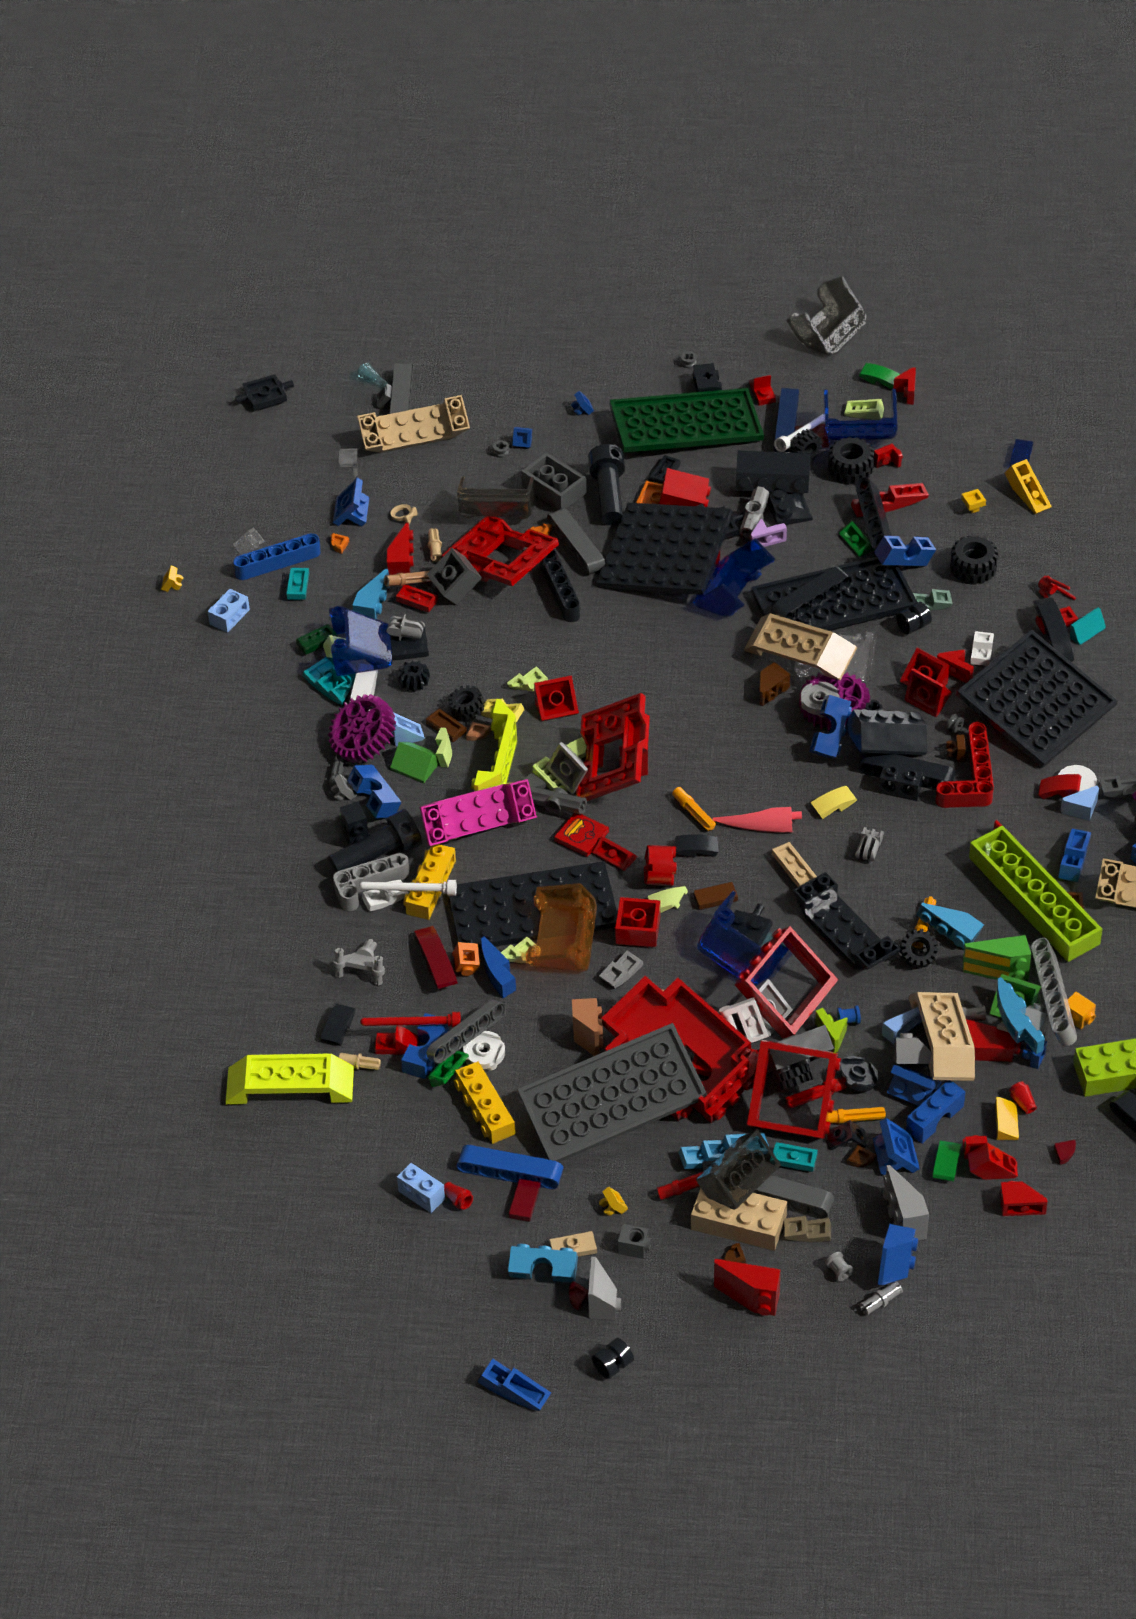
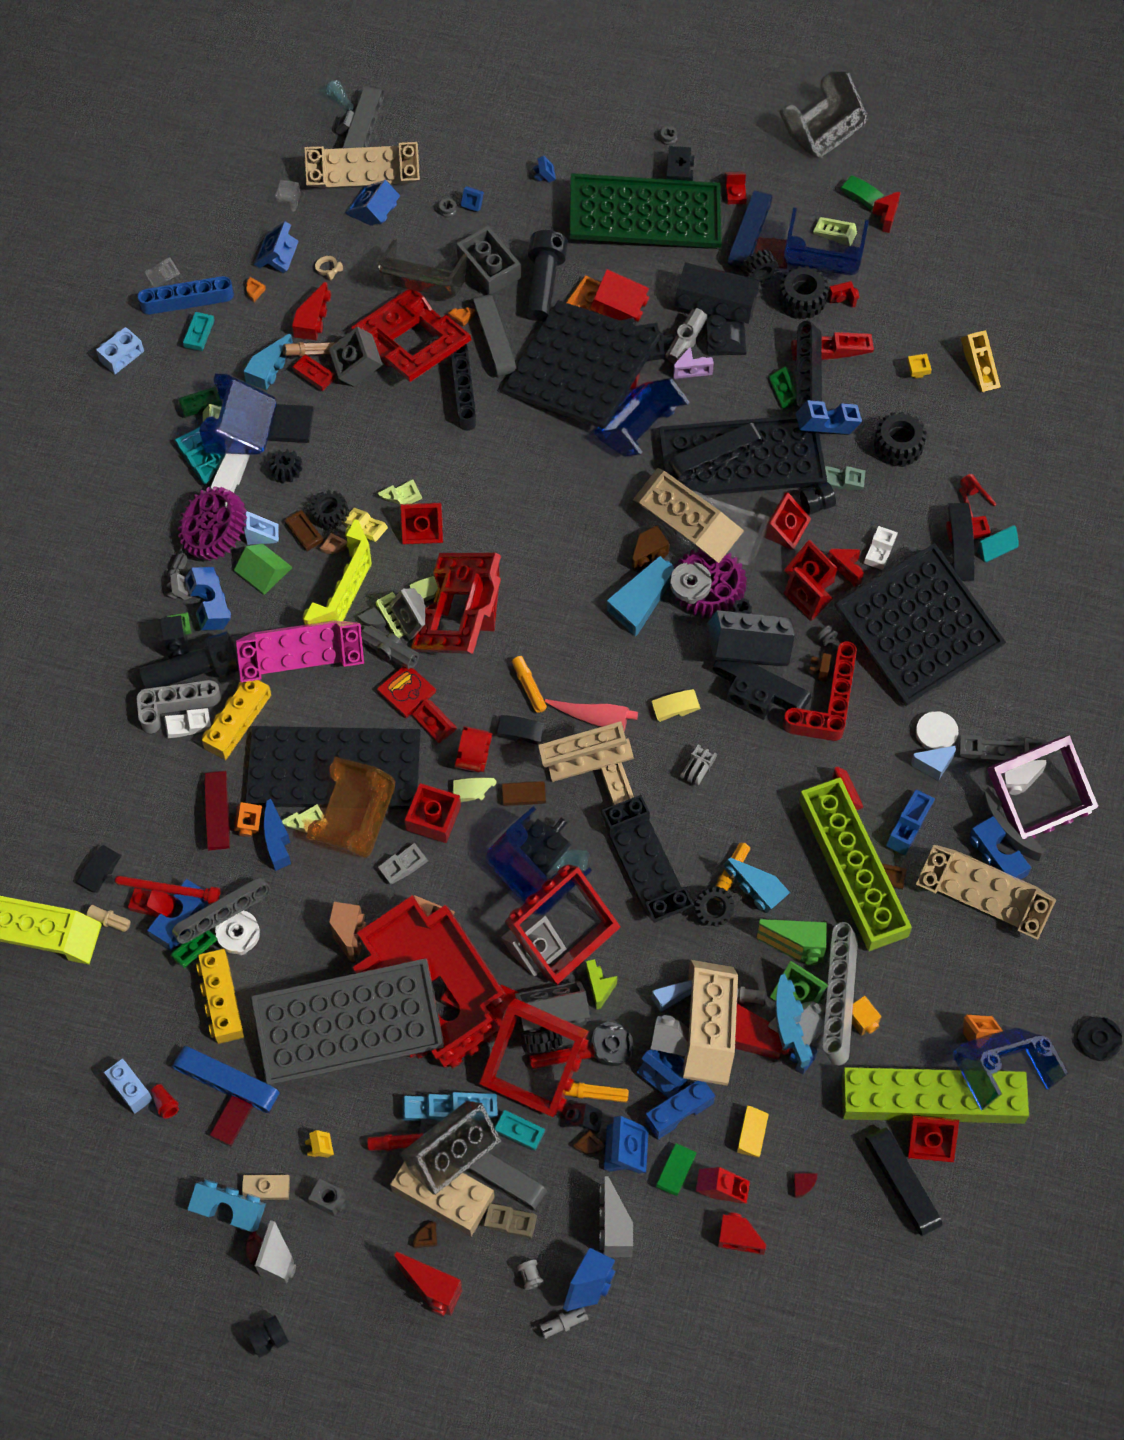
camera: 10 degrees right, 15 degrees up
(171, 579) = (72, 301): yellow tile -> none
(264, 392) = (226, 94): black plate -> none
(361, 959) = (140, 799): light grey axle -> none
(405, 628) = (289, 408): light grey arm -> none
(431, 455) = (374, 203): none -> blue slope
(434, 545) = (349, 311): tan axle -> none
(444, 750) = (294, 560): yellowish green slope -> none
(447, 887) = (248, 735): white piece -> none
(514, 1386) = (160, 1345): blue slope -> none
(672, 461) = (618, 262): black tile -> none
(749, 1017) = (513, 958): white plate -> none
(762, 834) = (586, 751): none -> tan fence
(775, 721) = (641, 595): none -> dark azure slope
(783, 442) = (736, 260): piece -> none
(837, 711) = (687, 635): blue arch -> none
(852, 1014) = (621, 970): blue bush -> none
(891, 642) = (787, 523): none -> red slope
(973, 1142) = (709, 1158): red bracket -> none
(1021, 451) = (985, 316): clear blue tile -> none
(1022, 1096) = (776, 1109): red cone -> none
(1060, 784) = (918, 735): red slope -> none

